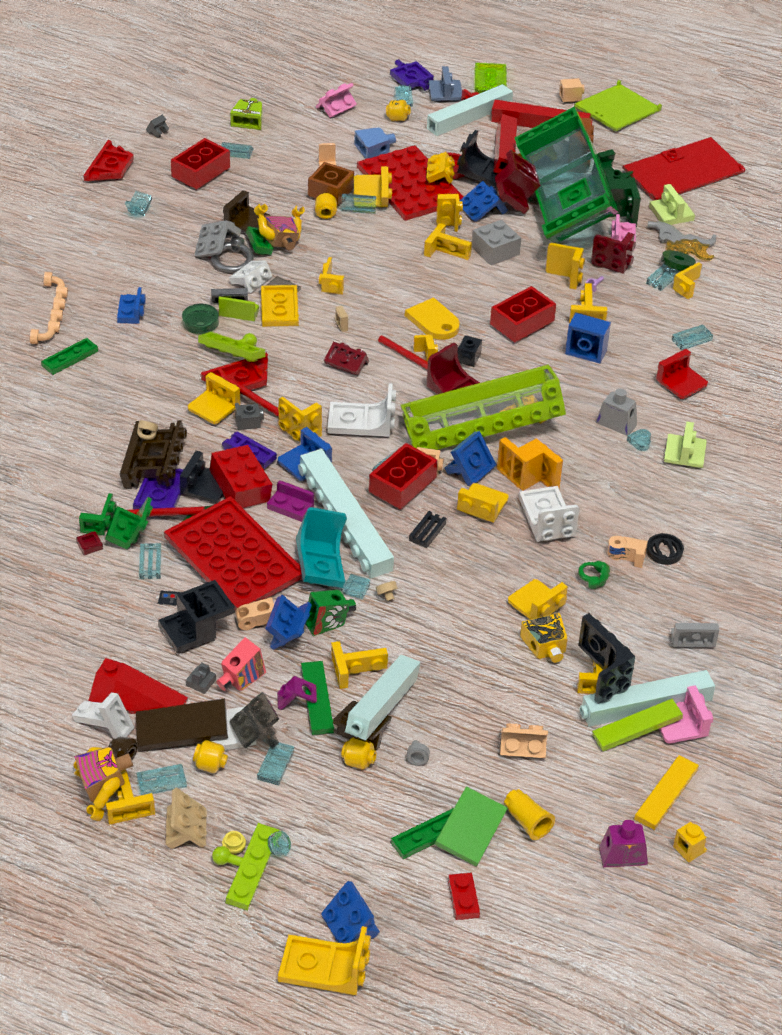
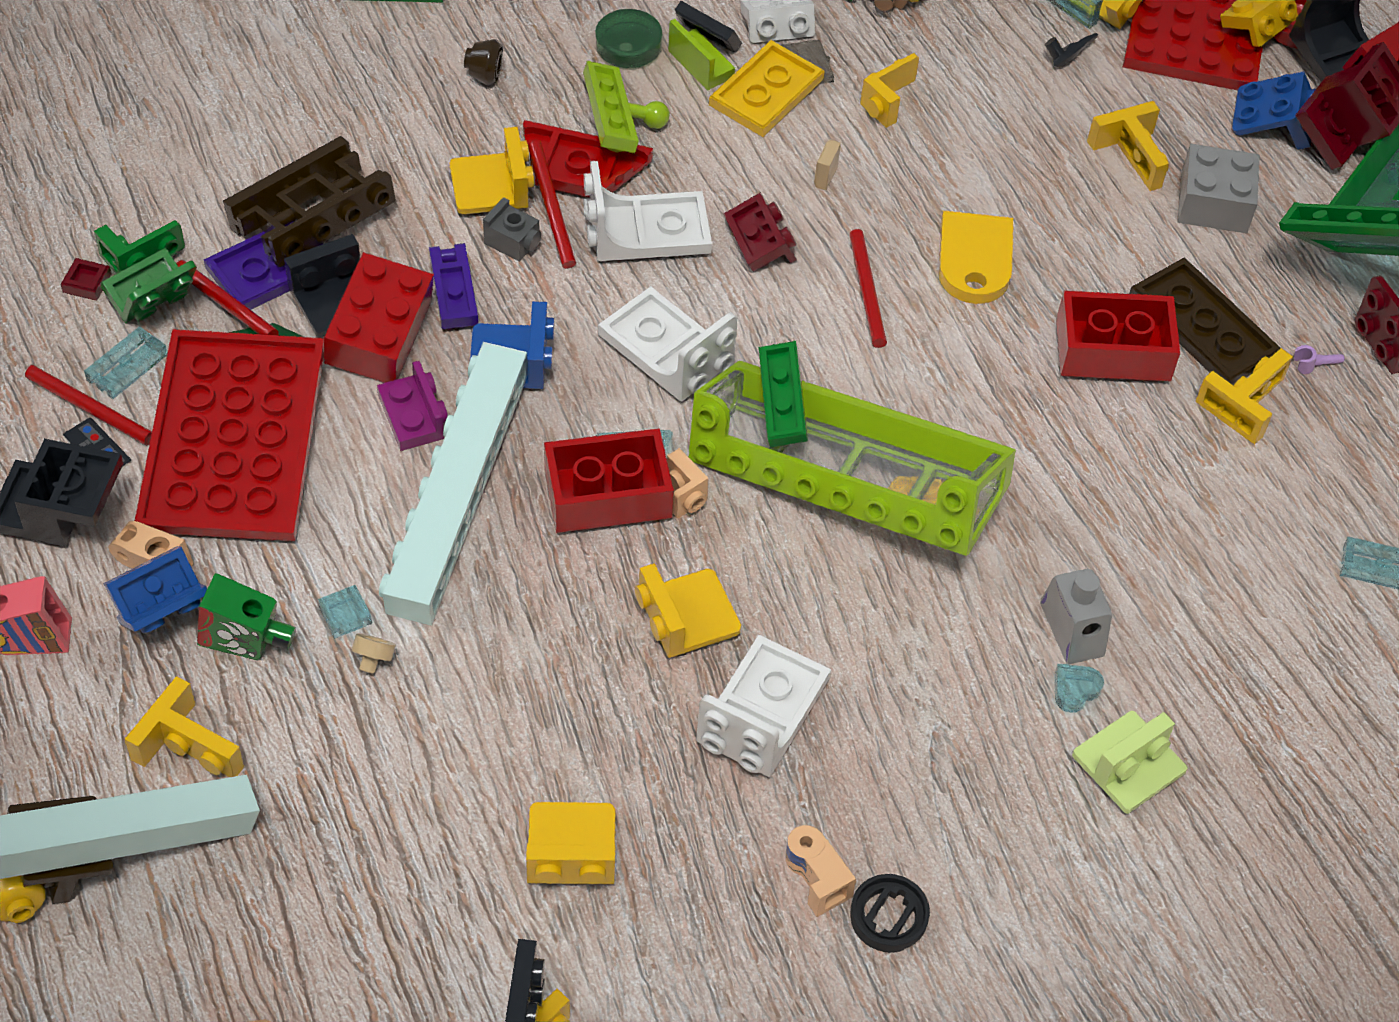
camera: 40 degrees right, 10 degrees up
(145, 586) = (88, 404): none -> red bar
(148, 426) = (332, 154): tan tile -> none
(154, 360) = (484, 61): none -> dark brown cone
(293, 419) = (566, 292): yellow bracket -> none
(294, 688) = (37, 712): magenta bracket -> none
(298, 381) = (644, 223): none -> white bracket
(319, 712) = (80, 744): green tile -> none
(320, 547) = (341, 517): teal bracket -> none
(379, 227) = (1064, 55): none -> black bar
(418, 753) = (89, 960): light grey tile -> none
(425, 344) = (905, 295): yellow bracket -> none
(433, 519) = (555, 589): black tile -> none
(436, 402) = (783, 394): none -> green tile
(445, 371) = (876, 357): dark red bracket -> none
(448, 210) = (1192, 89): yellow bracket -> none
(469, 350) = (962, 342): black brick -> none
(471, 459) = (744, 527): blue bracket -> none
(529, 464) = (821, 601): light orange bracket -> none
(545, 637) = (503, 912): torso -> none
(562, 294) = (1209, 323): none -> dark brown tile
(566, 261) = (1292, 292): yellow bracket -> none
(587, 338) = (1174, 446): blue brick -> none
(593, 581) = (723, 881): green piece -> none
(678, 376) = (1272, 620): red bracket -> none

